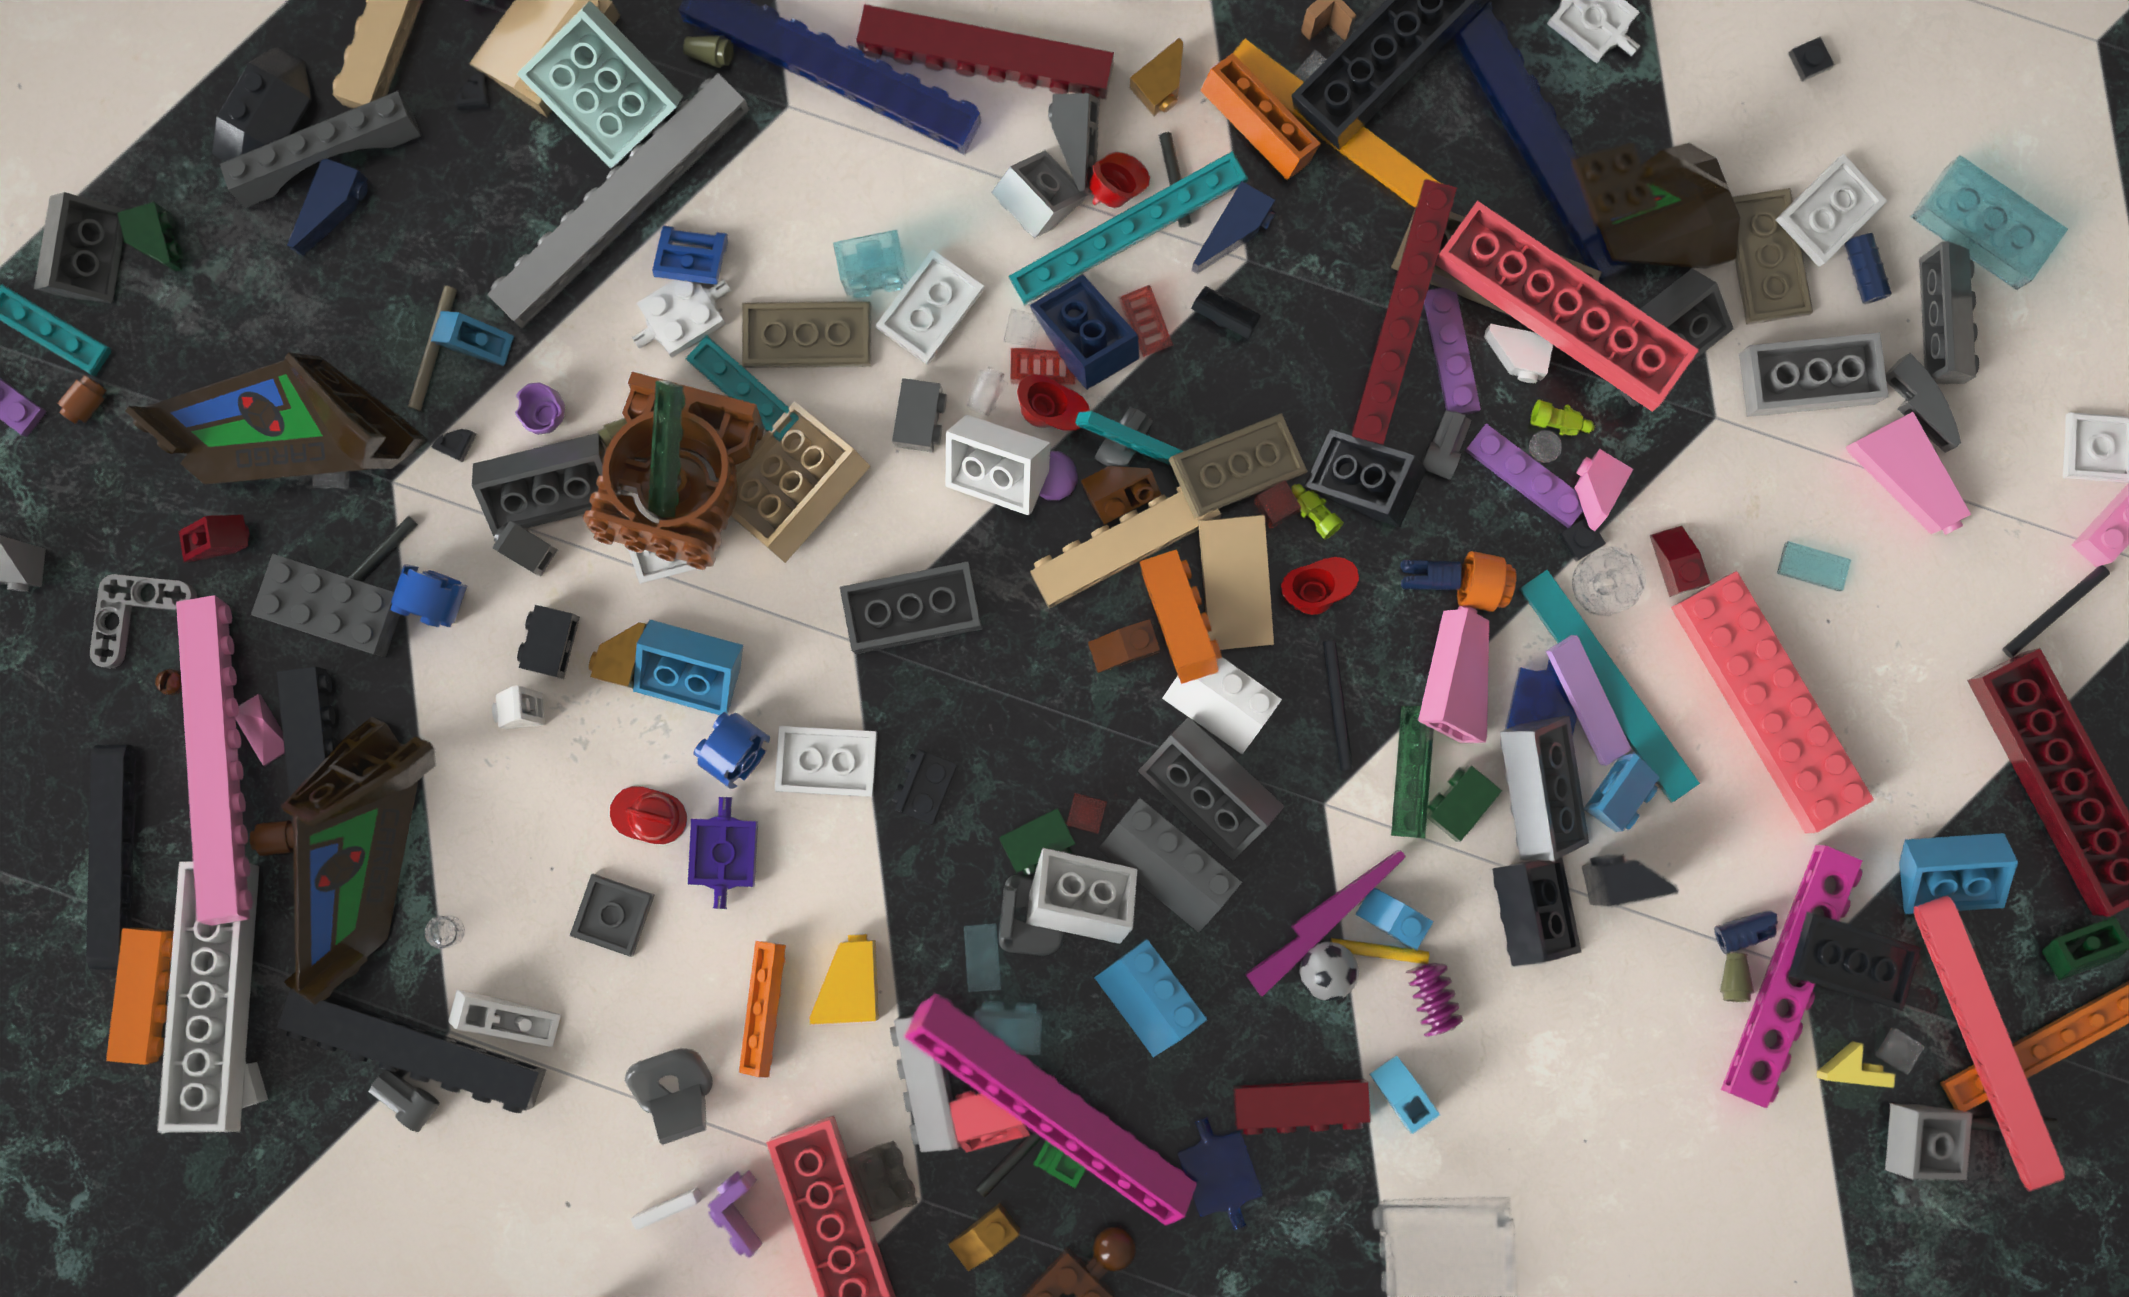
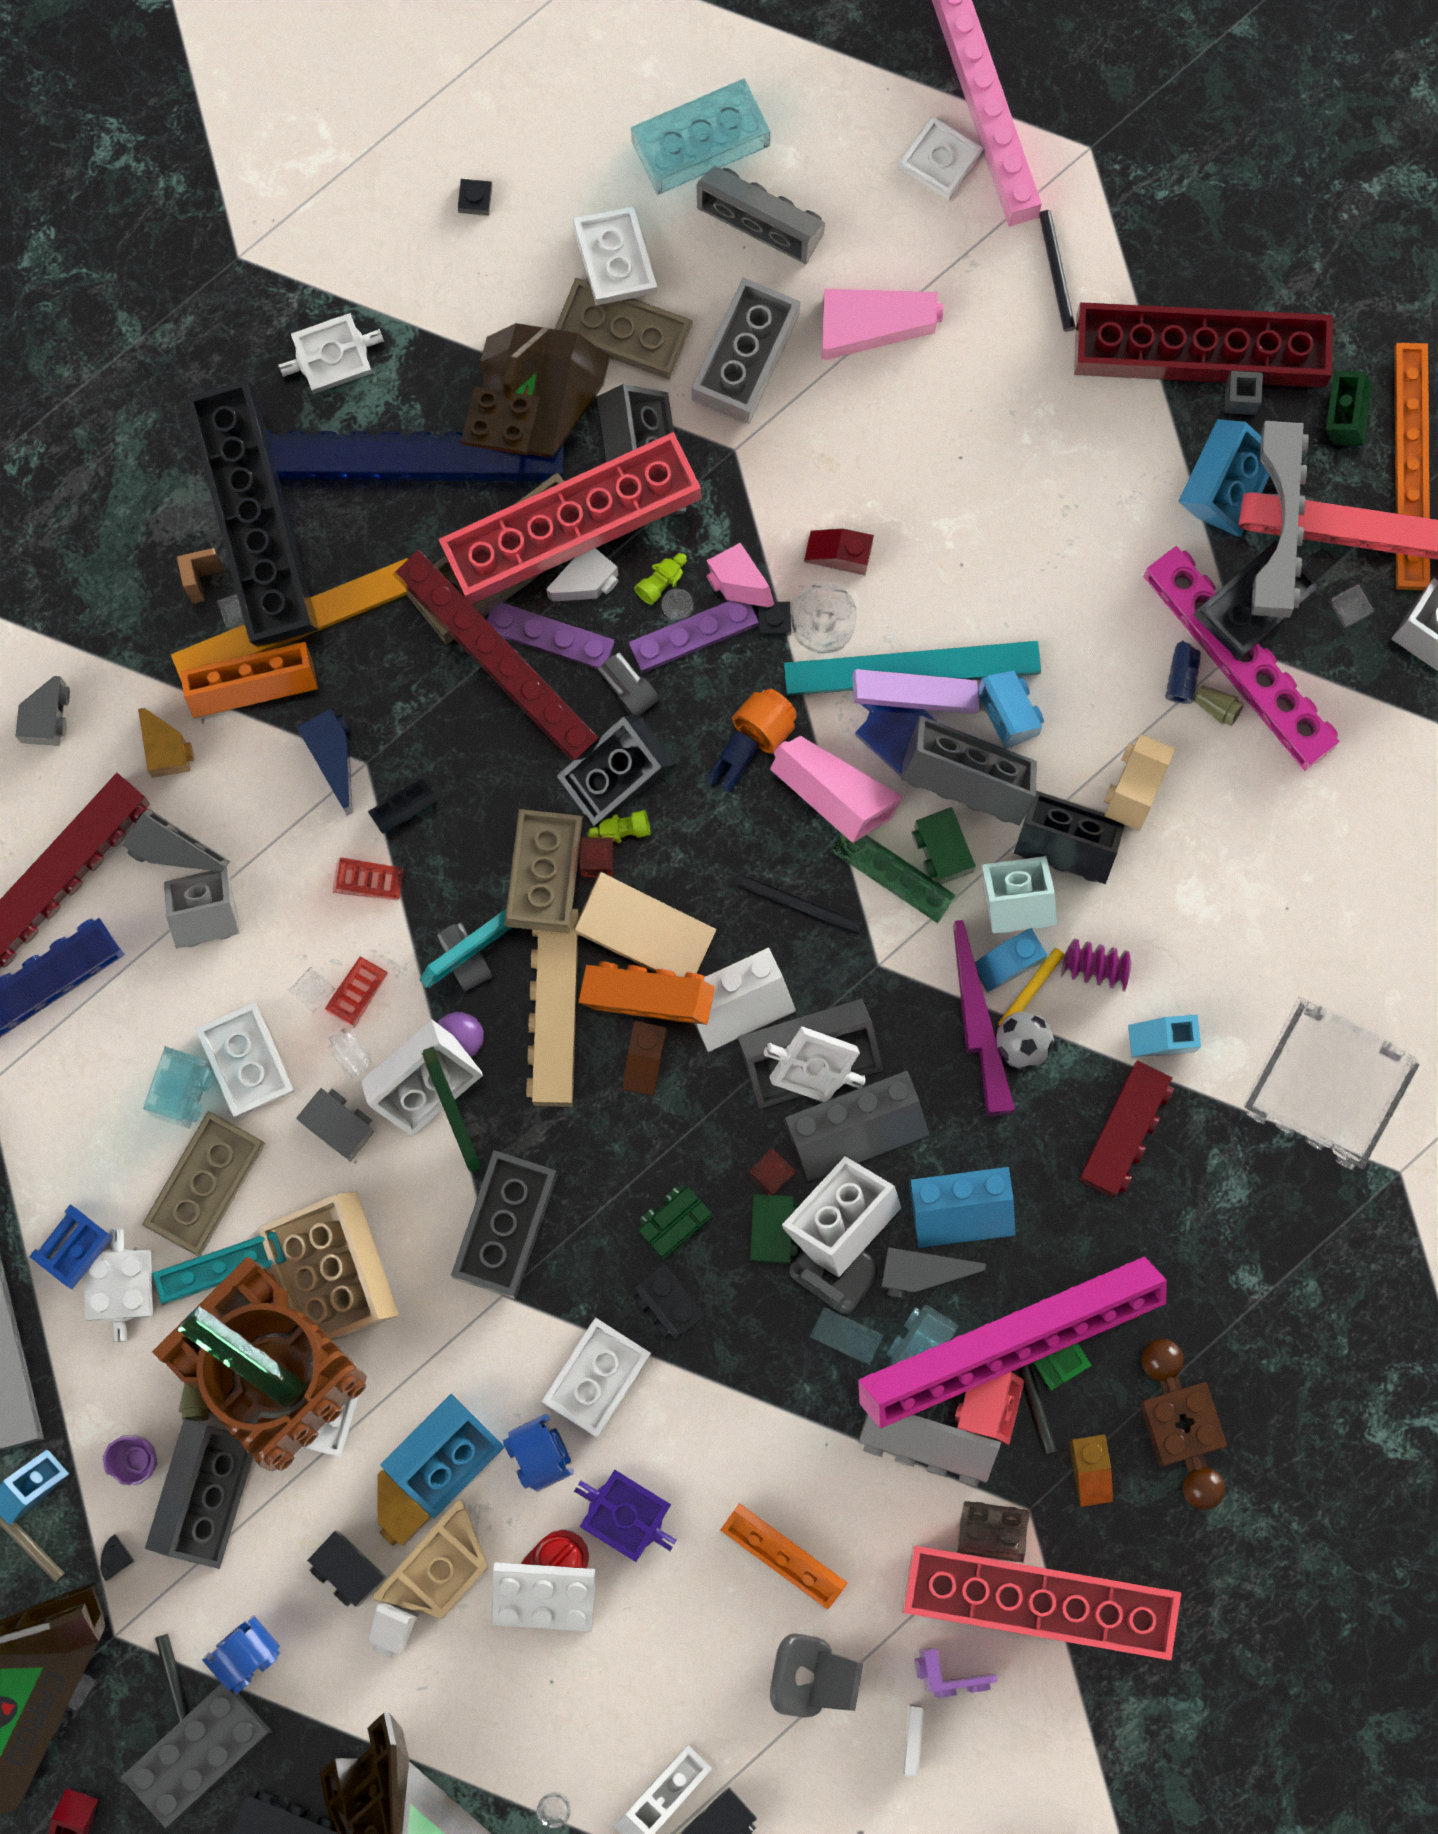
camera: 70 degrees left, 5 degrees down
(524, 548) = (249, 1542): dark grey slope -> none
(592, 719) = (438, 1568): none -> tan wing
(612, 915) = (624, 1648): dark grey tile -> none
(614, 821) = (543, 1597): none -> white plate
(850, 984) = (805, 1465): yellow slope -> none
(982, 504) = (451, 1109): none -> dark green tile
(996, 752) = (674, 1221): none -> dark green brick
(1049, 403) = (394, 1002): red piece -> none
(1071, 990) = (916, 1272): none -> dark grey slope
(1086, 331) = (348, 935): dark blue slope -> none
(1118, 179) = (231, 832): red piece -> none
(1119, 490) = (506, 985): reddish brown slope -> none
(1128, 228) = (278, 849): teal tile -> none
(1172, 168) = (258, 784): pearl dark grey bar -> none
(1200, 798) = (814, 1065): none -> white plate
(1221, 1172) = (1147, 1231): clear blue plate -> none
(1320, 584) = (687, 859): red piece -> none
(1457, 895) = (1019, 894): none -> light aqua brick
(1618, 881) = (1083, 750): black slope -> none
(1623, 945) = (1139, 782): none -> tan brick
(1772, 703) = (1002, 543): coral brick -> none
(1813, 566) = (907, 442): clear light blue tile -> none
(1848, 1068) = (1341, 656): light yellow slope -> none
(1868, 268) = (681, 254): dark blue axle -> none
(1925, 400) = (820, 274): dark grey slope -> none
(2002, 914) = (1281, 456): none -> light grey arch
(2043, 843) = (1243, 392): none -> dark grey brick

